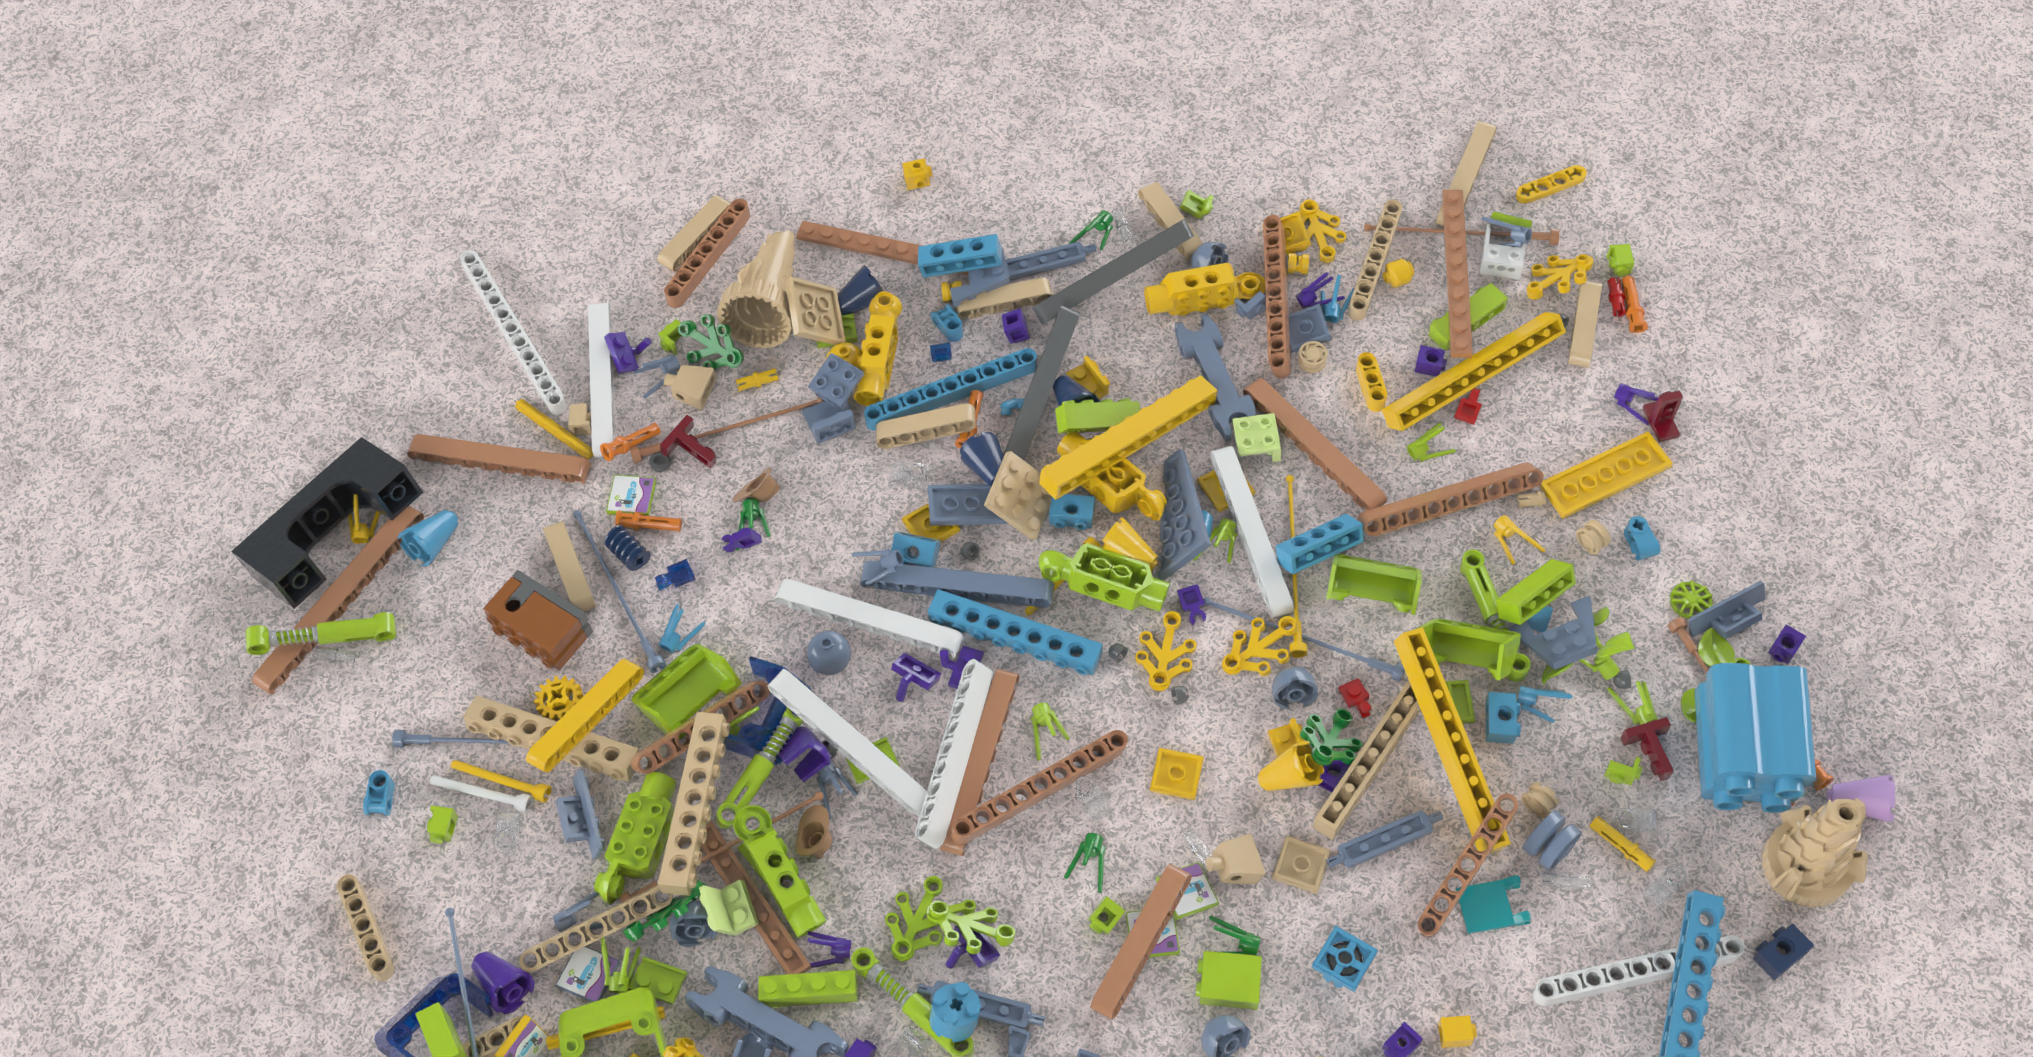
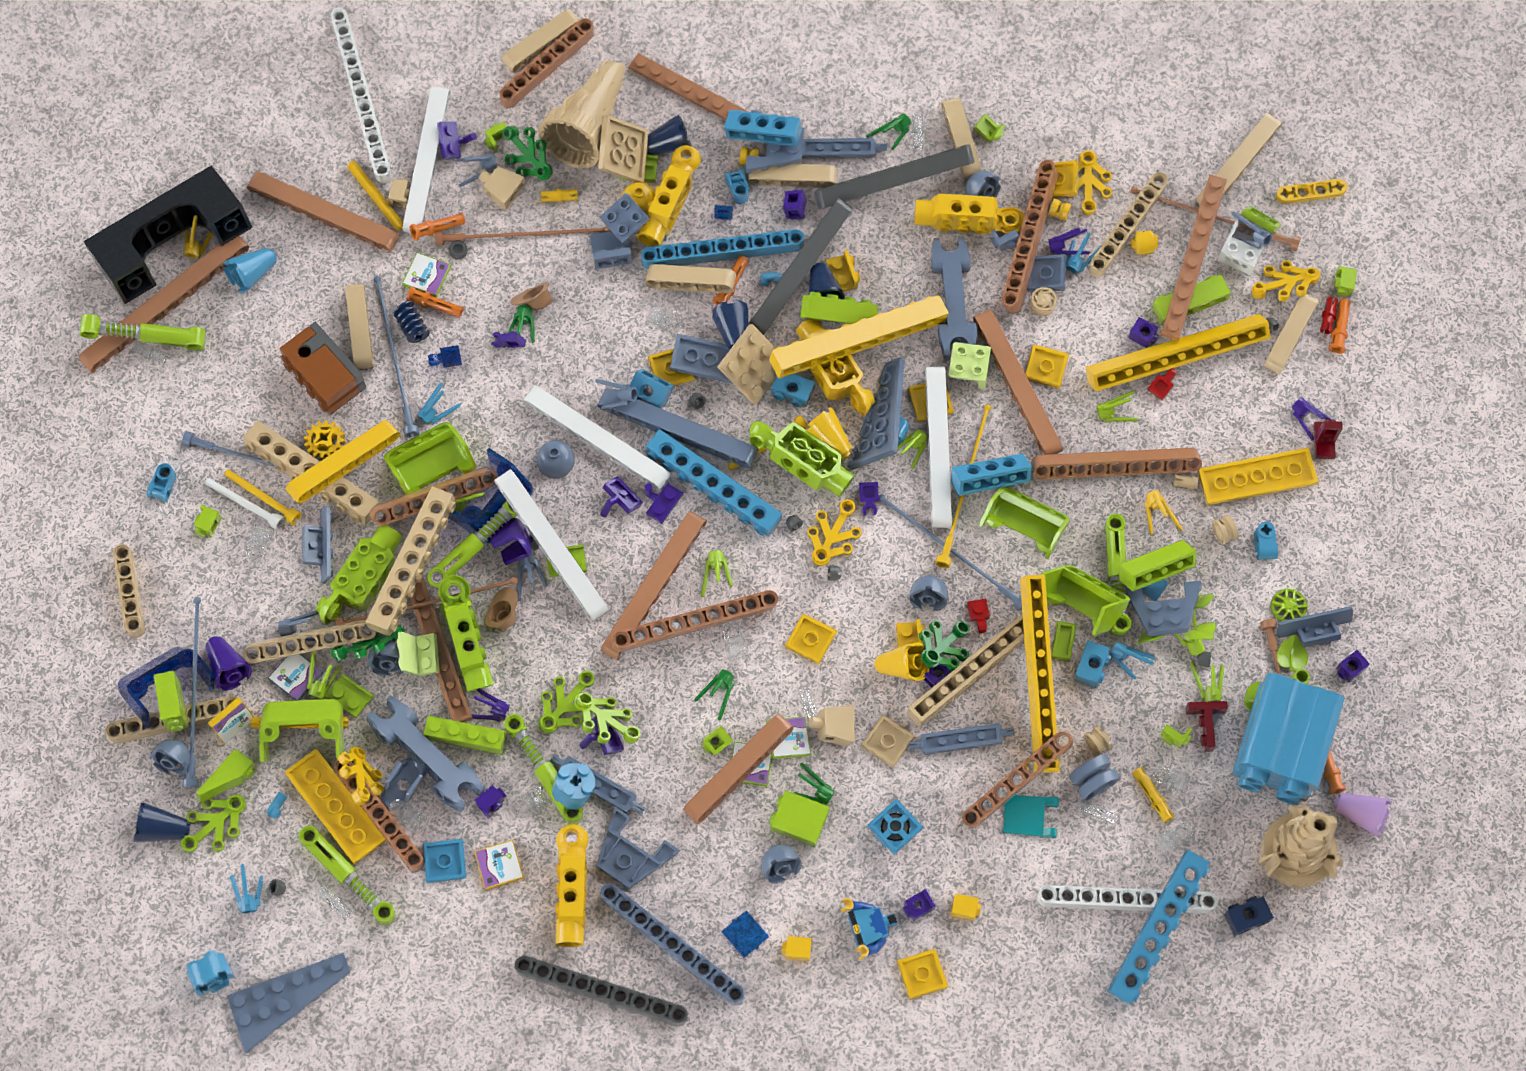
camera: 10 degrees right, 10 degrees up
(689, 443) = (485, 240): dark red bracket -> none
(916, 174) = (750, 34): yellow brick -> none
(953, 754) = (633, 574): white beam -> none
(1257, 648) = (909, 550): yellow plant -> none
(1339, 420) = (1046, 366): none -> yellow tile
(1369, 374) = (1088, 331): yellow beam -> none

